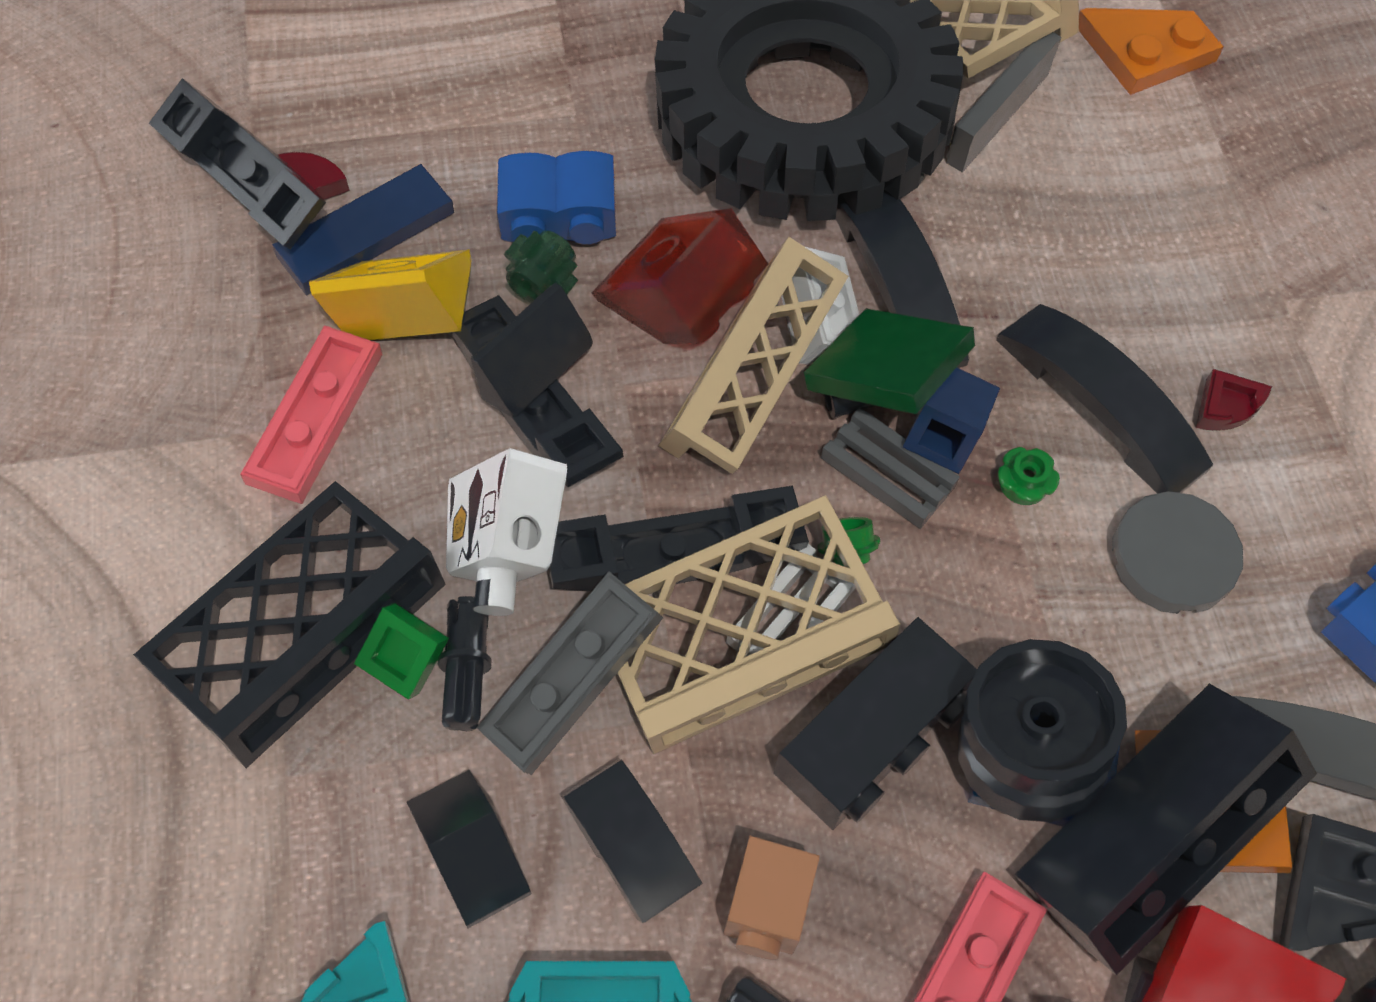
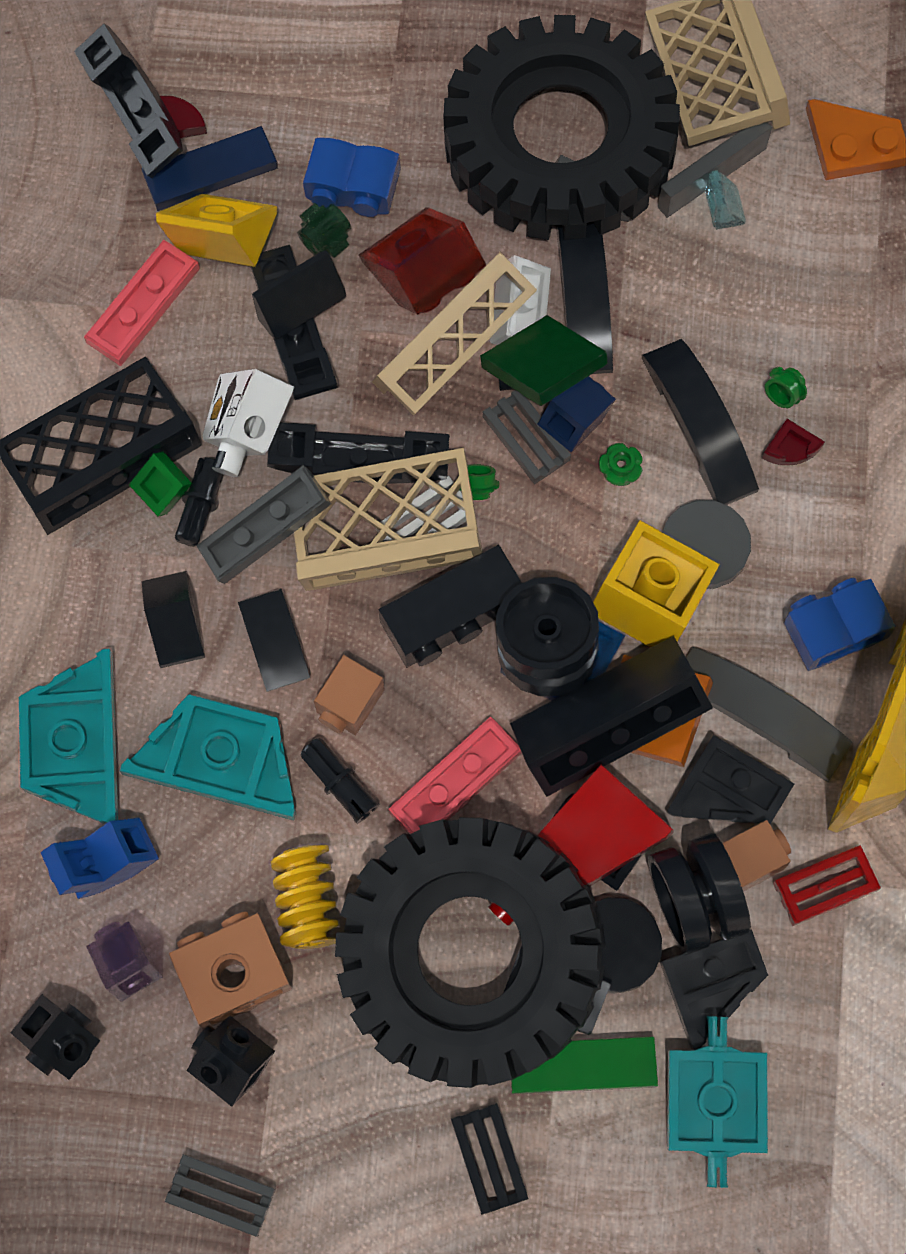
camera: 20 degrees right, 10 degrees up
(1025, 137) = (724, 201): none -> clear light blue slope
(1150, 623) = (653, 586): none -> yellow slope
(1194, 342) = (786, 387): none -> green plate

